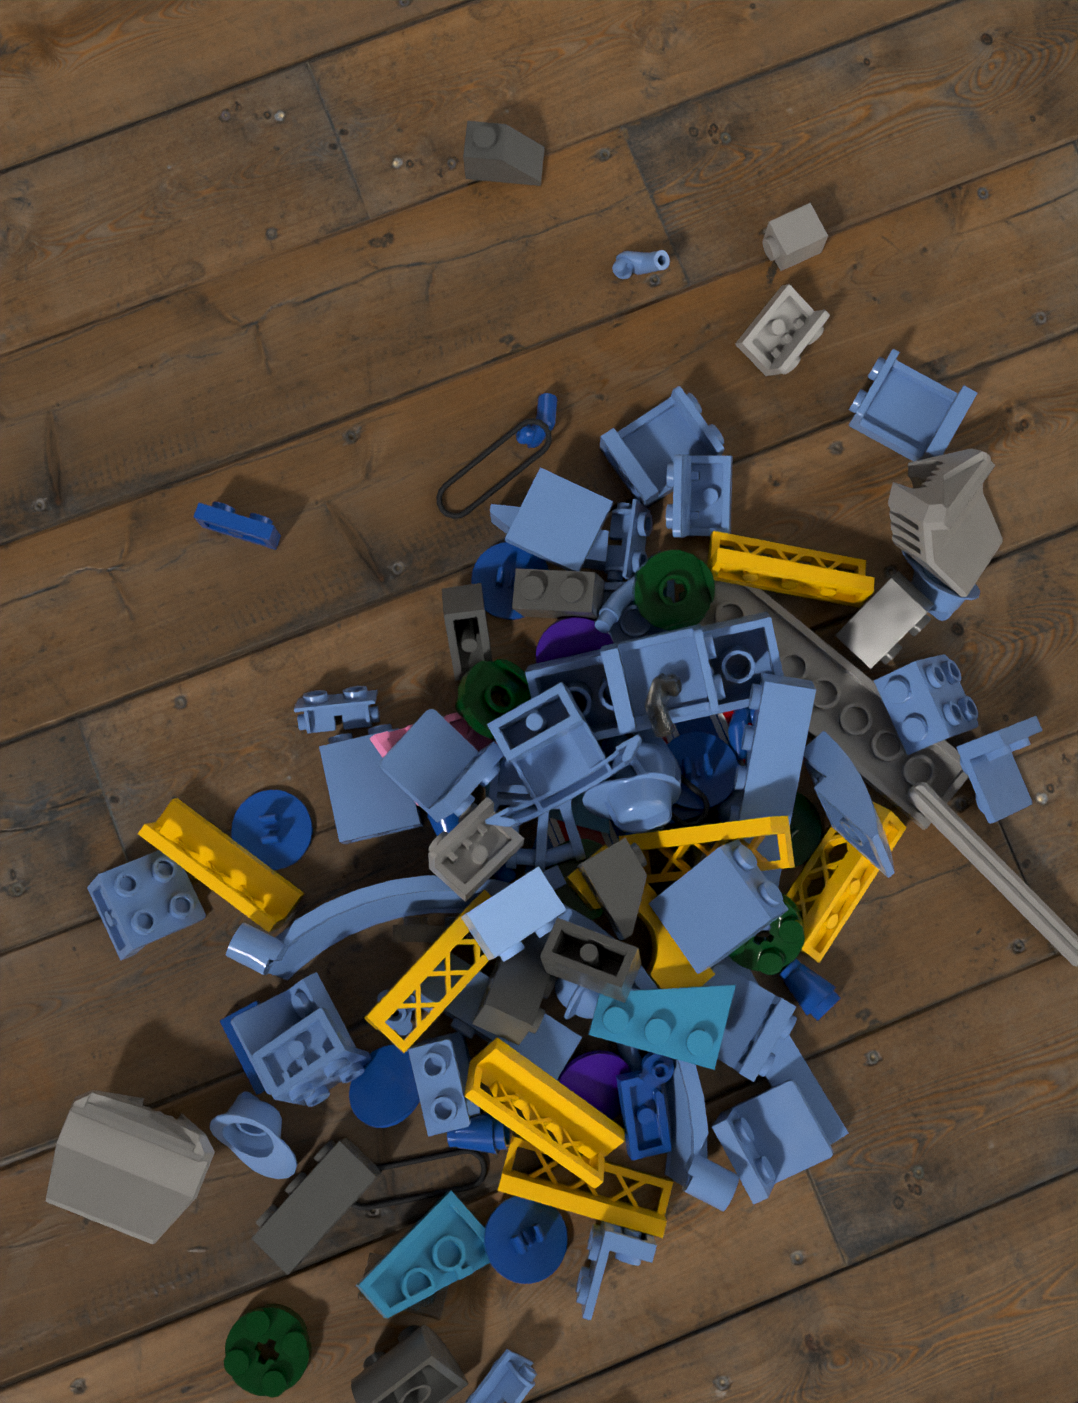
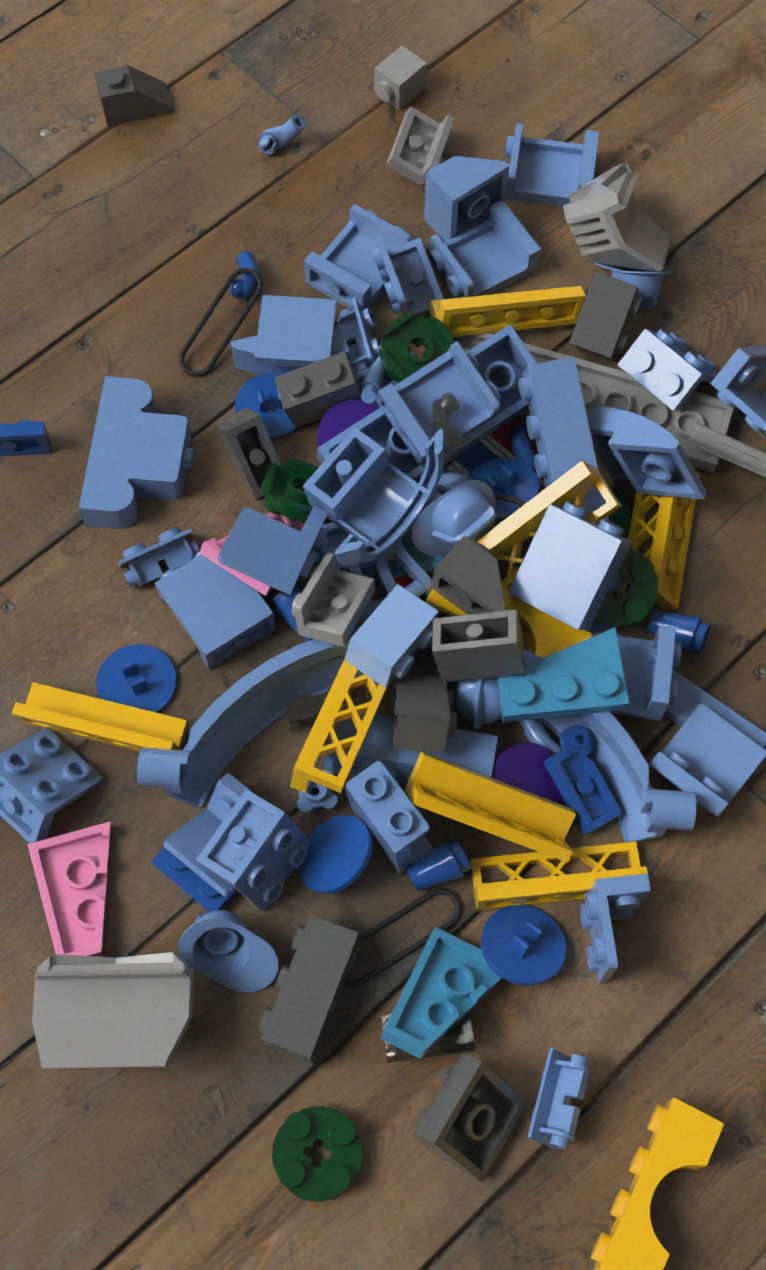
camera: 25 degrees left, 15 degrees down
(140, 1019) = (73, 887): none -> bright pink wing
(351, 588) = (132, 455): none -> medium blue brick
(794, 492) = (486, 255): none -> medium blue panel
(798, 419) = (461, 193): none -> medium blue slope

